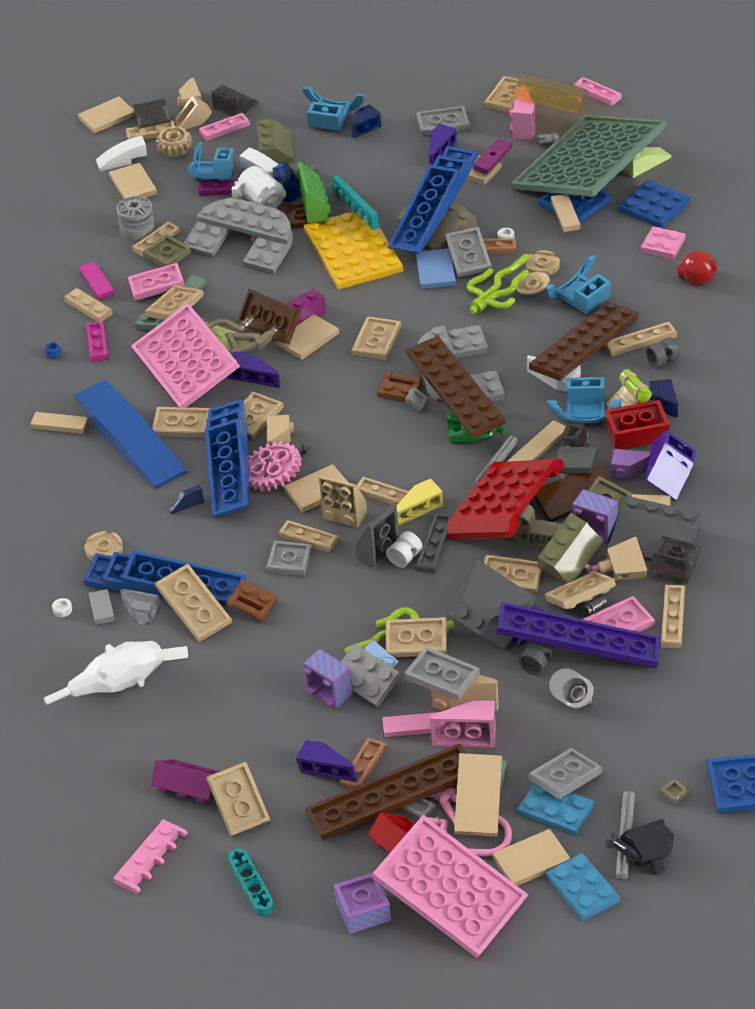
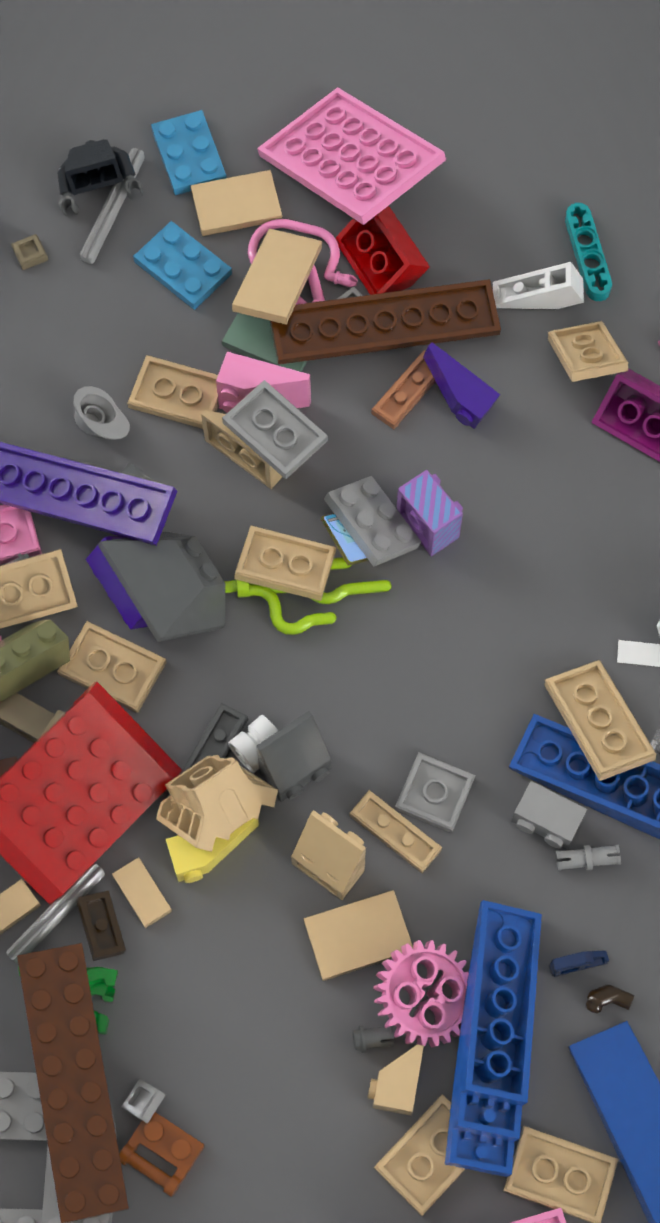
camera: 170 degrees left, 25 degrees up
(167, 492) = (608, 994): none -> dark brown arm
(189, 545) = (588, 857): none -> light grey pin
(217, 555) = (548, 815): none -> light grey brick
(253, 597) = (504, 716): dark orange plate -> none
(278, 840) = (541, 289): none -> white slope
(362, 903) = (463, 176): medium lavender container -> none
(381, 491) = (254, 895): tan tile -> none
(407, 725) = (344, 436): bright pink tile -> none
(421, 508) = (213, 801): none -> tan slope
(450, 479) = (142, 892): none -> tan tile
(467, 458) = (101, 925): none -> dark brown plate
(527, 728) = (174, 391): none -> tan tile
(565, 773) = (155, 298): light grey tile -> none

